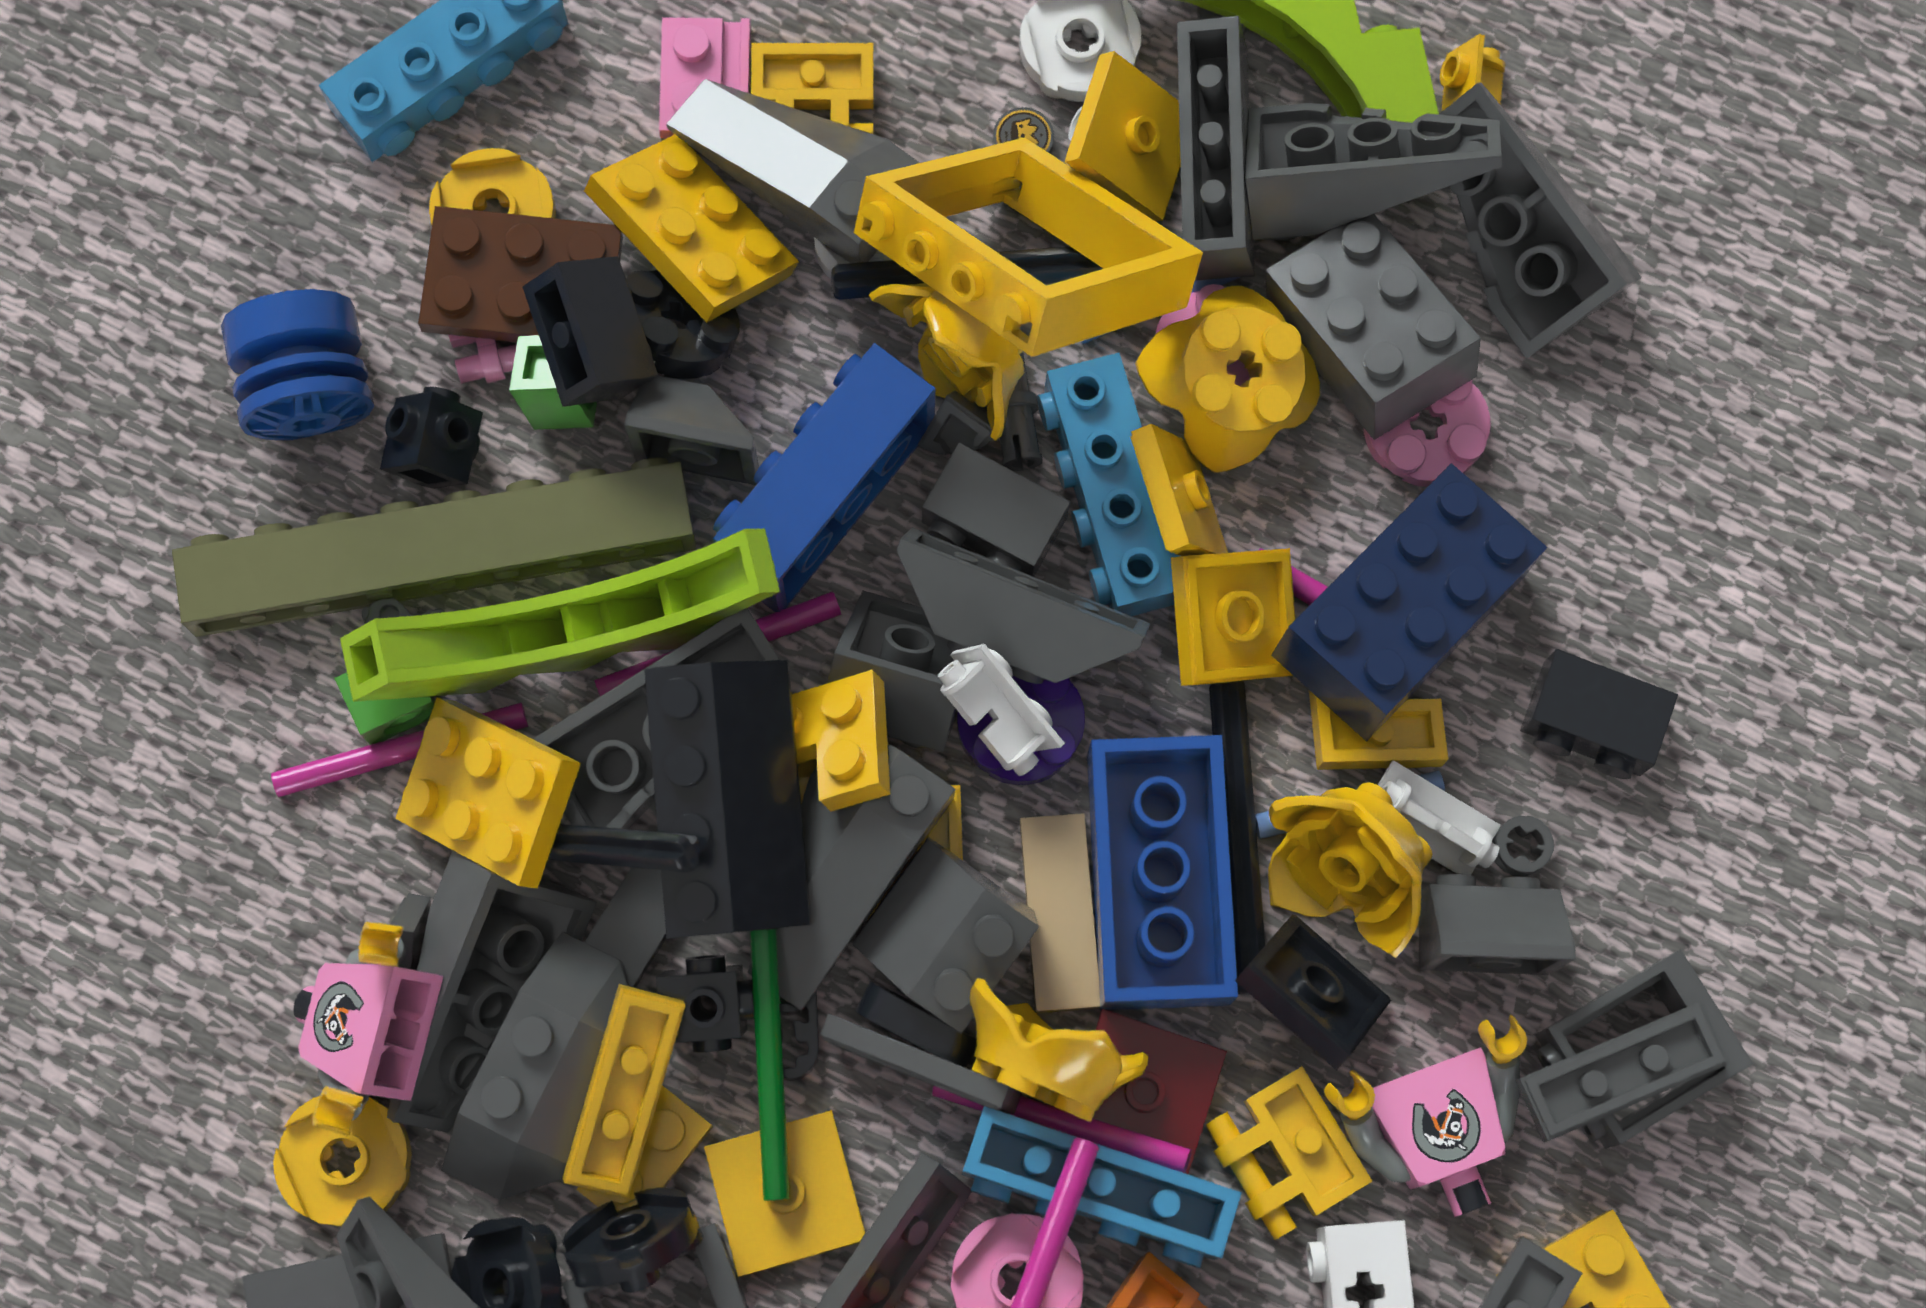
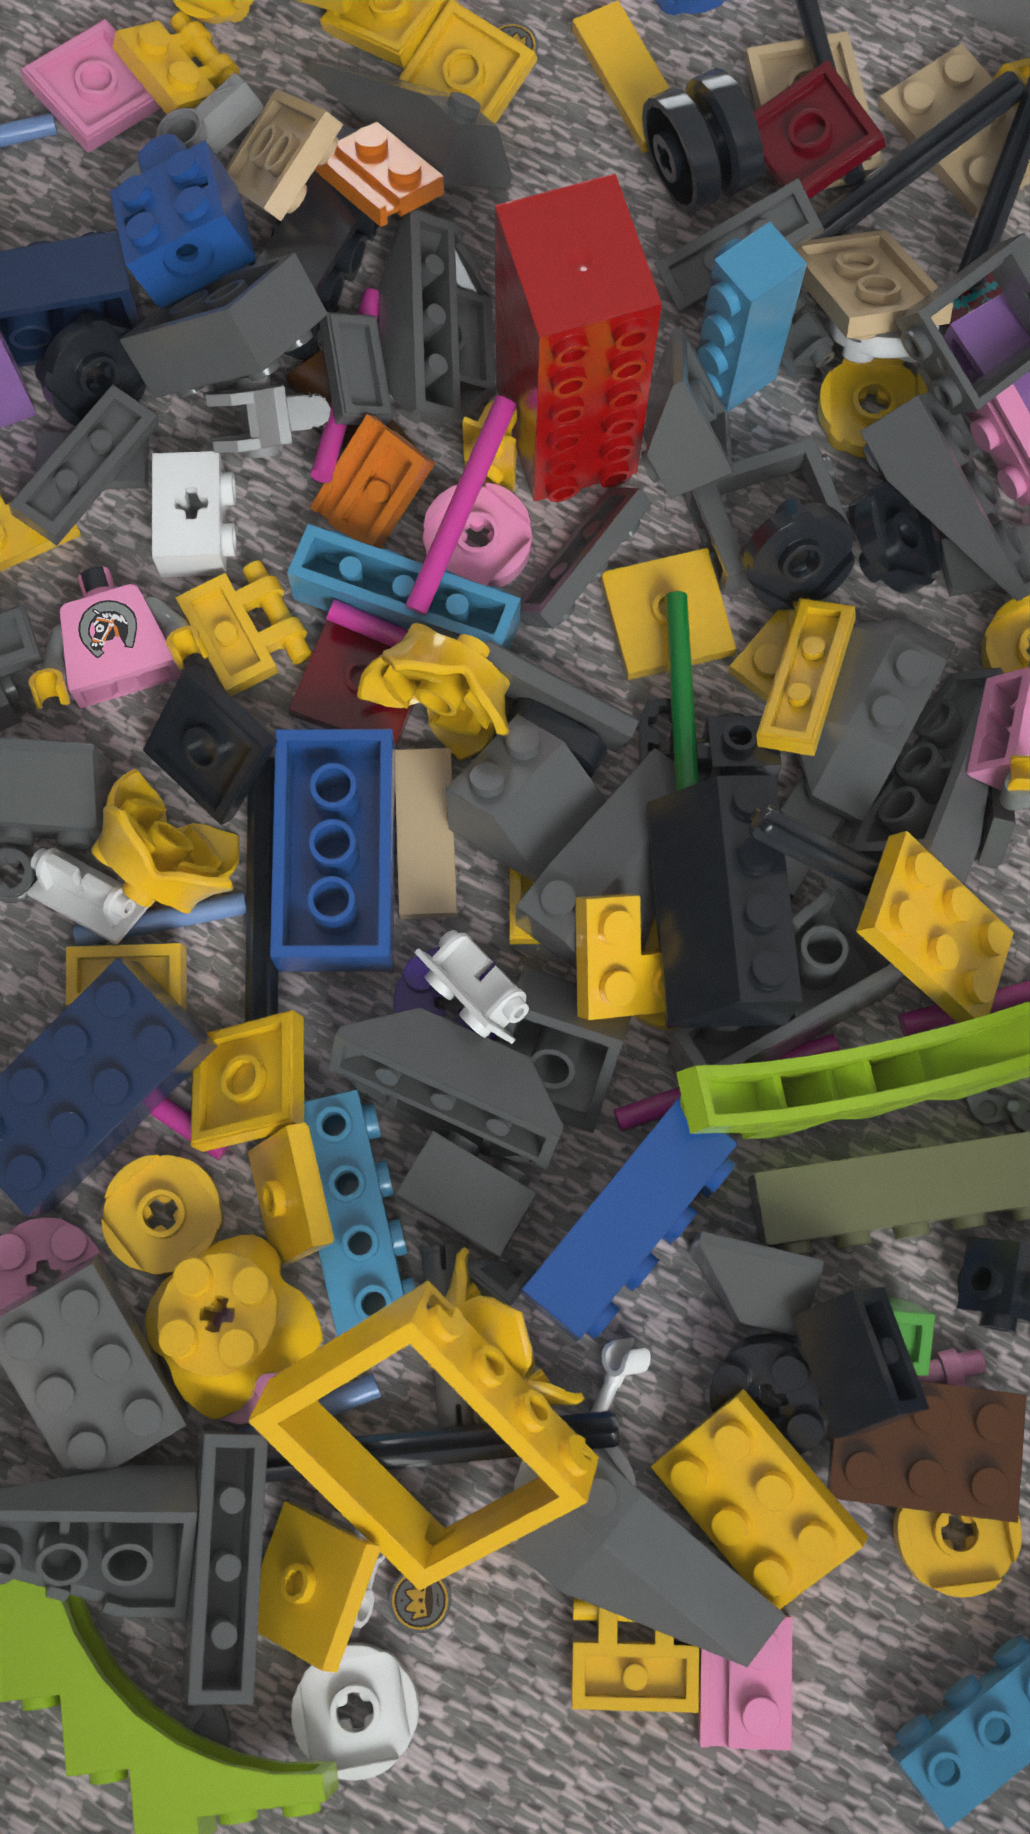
camera: 175 degrees left, 0 degrees up
(832, 354) = (619, 1361): none -> white hand
(1313, 453) = (129, 1210): none -> yellow plate

